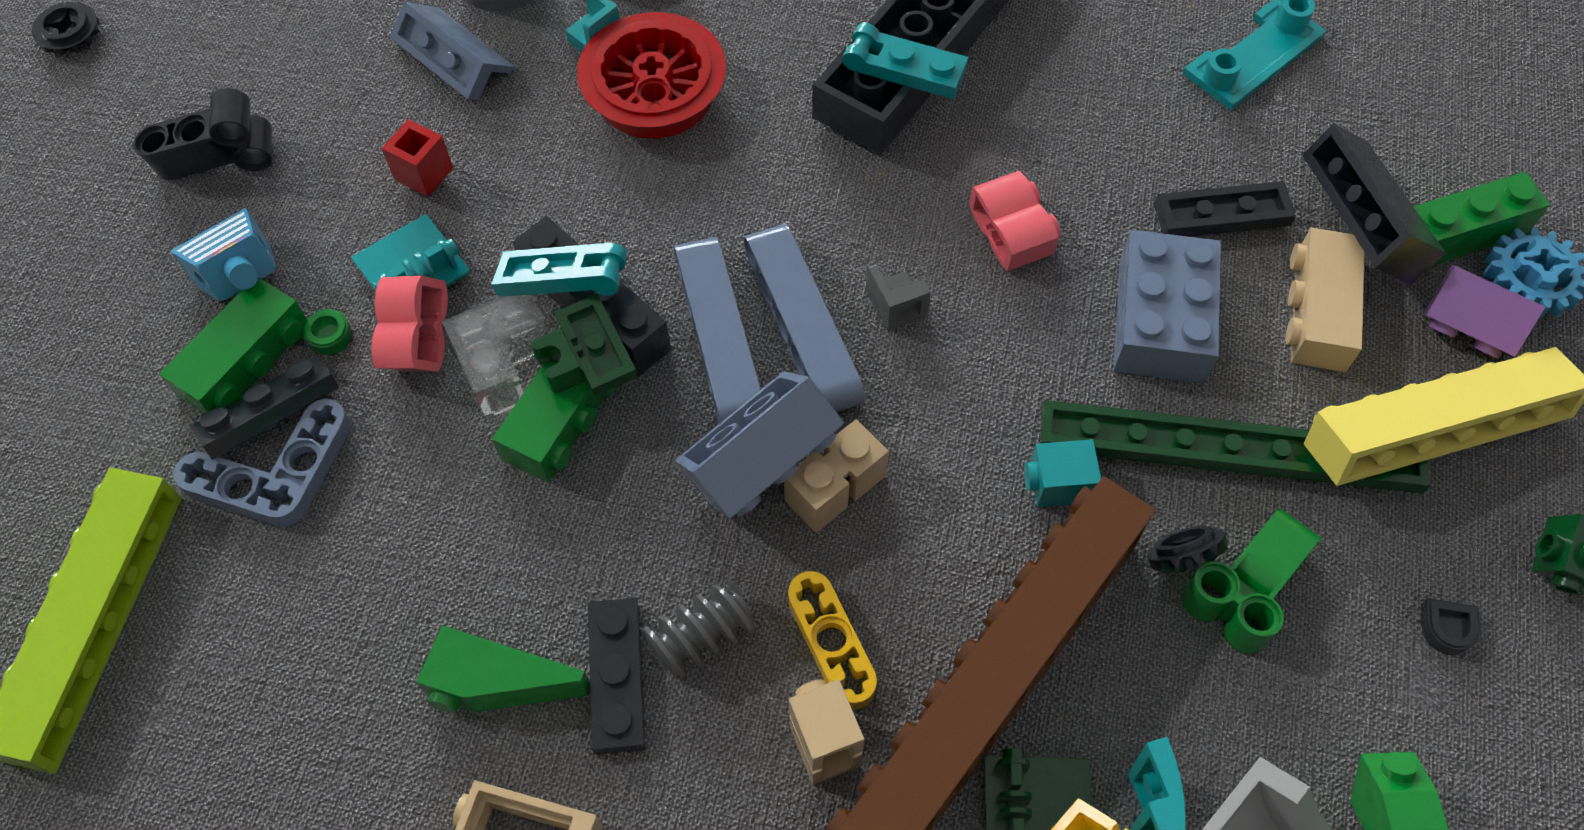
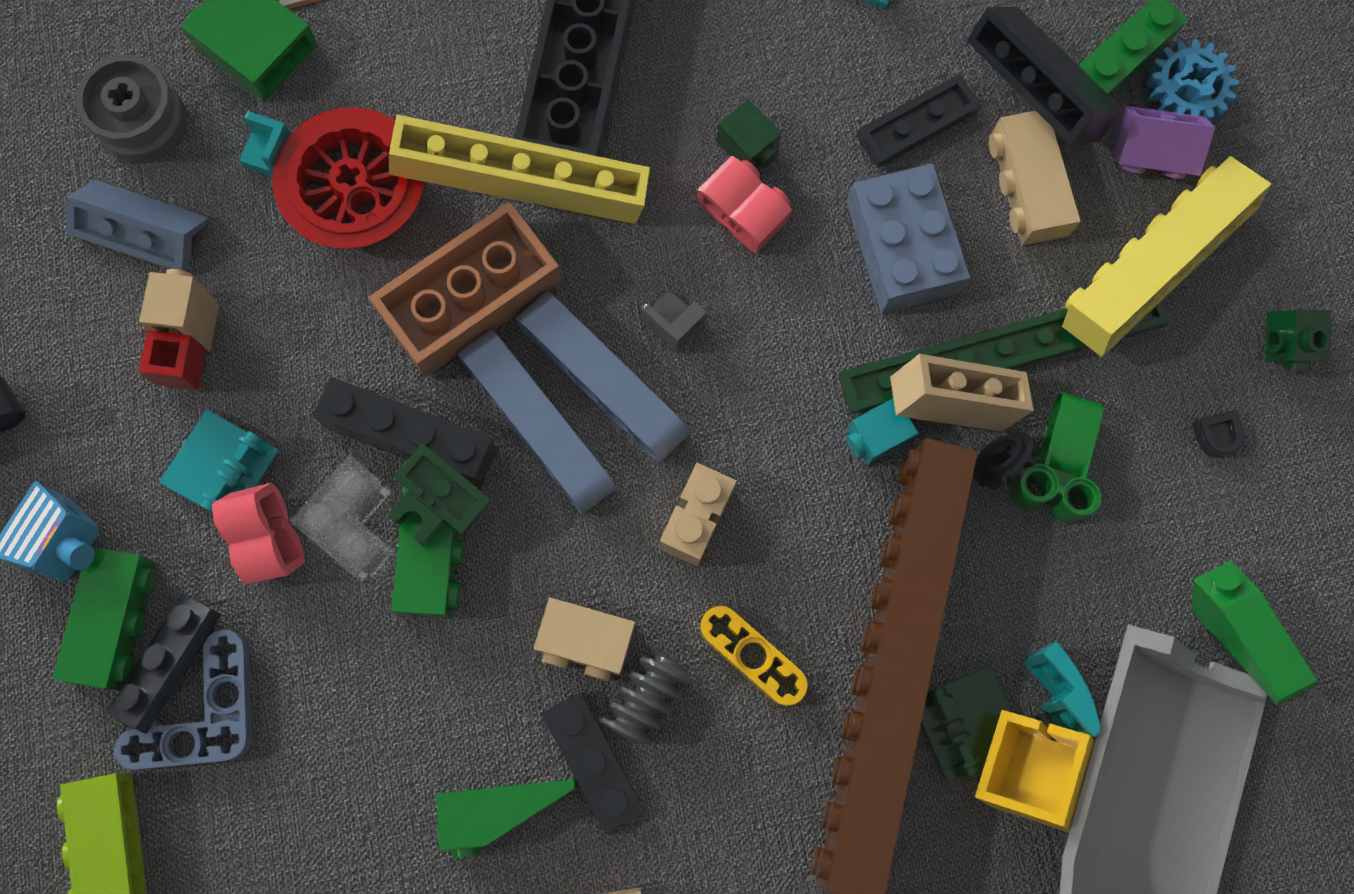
camera: 30 degrees left, 15 degrees up
(327, 332) = (177, 563): green tile -> none
(447, 108) = (179, 306): none -> tan brick
(560, 270) = (377, 435): teal plate -> none
(666, 547) = (584, 638): none -> tan brick
(710, 192) = (466, 288): none -> nougat brick
(760, 443) = (626, 522): sand blue brick -> none
(807, 109) = (517, 169): none -> light yellow brick
(825, 730) = (788, 742): tan piece -> none
(905, 62) = (589, 88): teal plate -> none
(1046, 162) = (749, 136): none -> dark green brick
(1164, 459) = (961, 393): none -> tan brick

